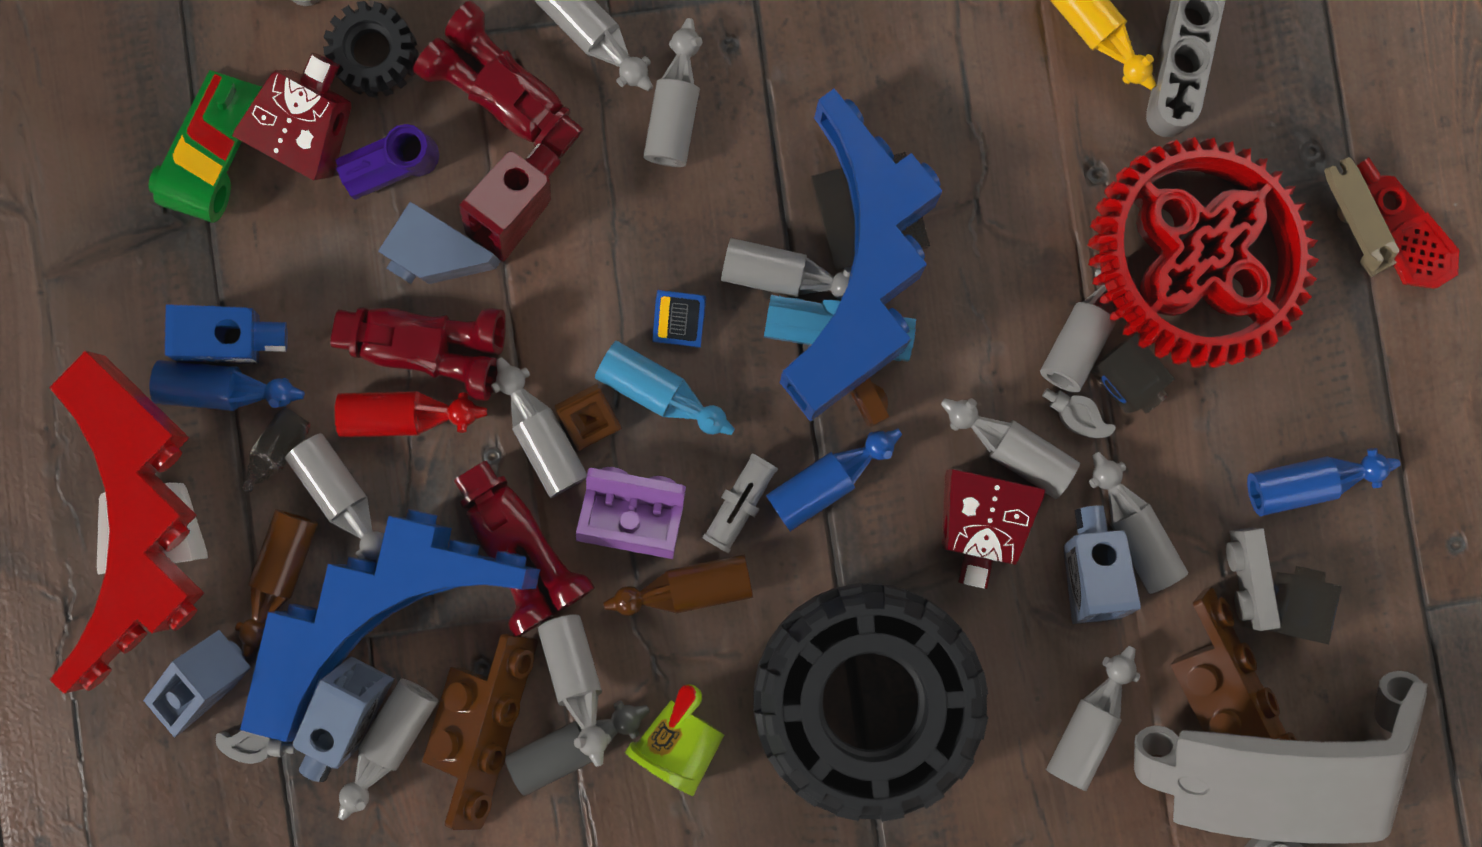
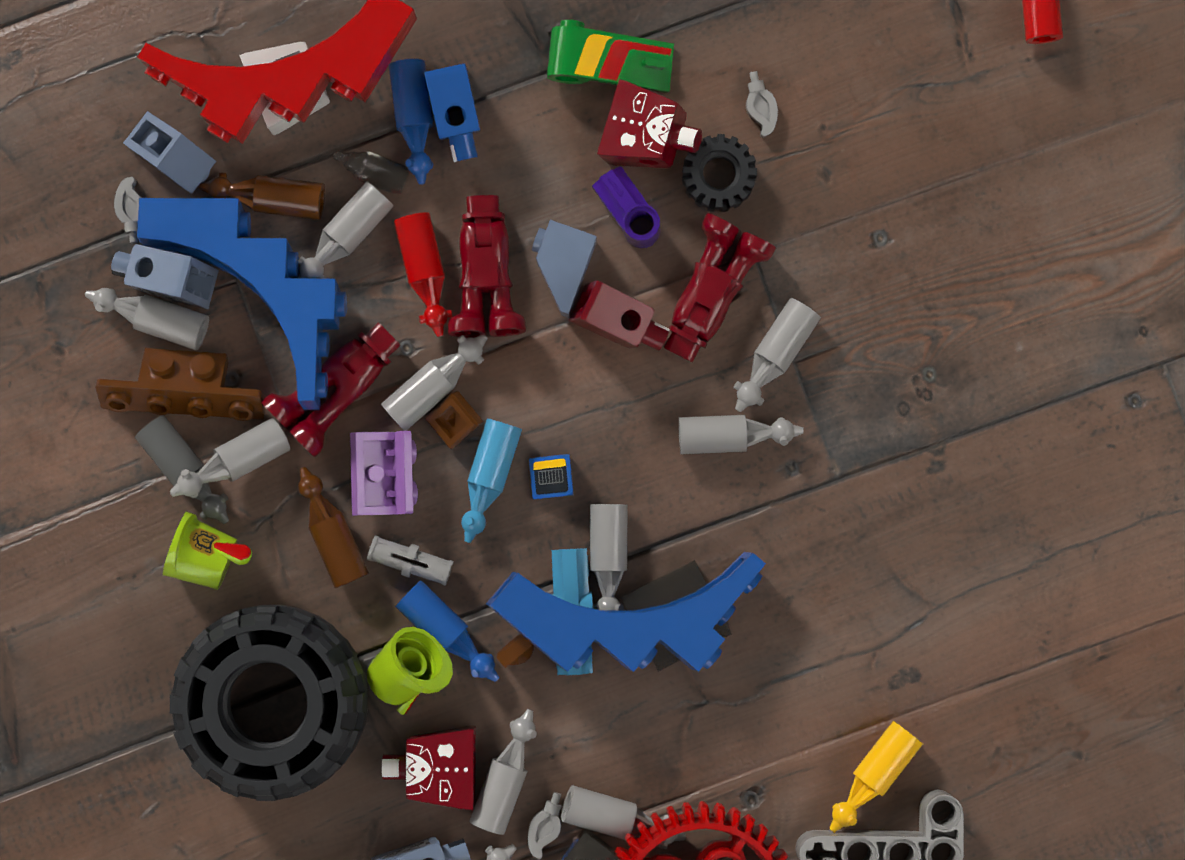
camera: 75 degrees right, 0 degrees up
(864, 528) = (409, 666): none -> lime hat

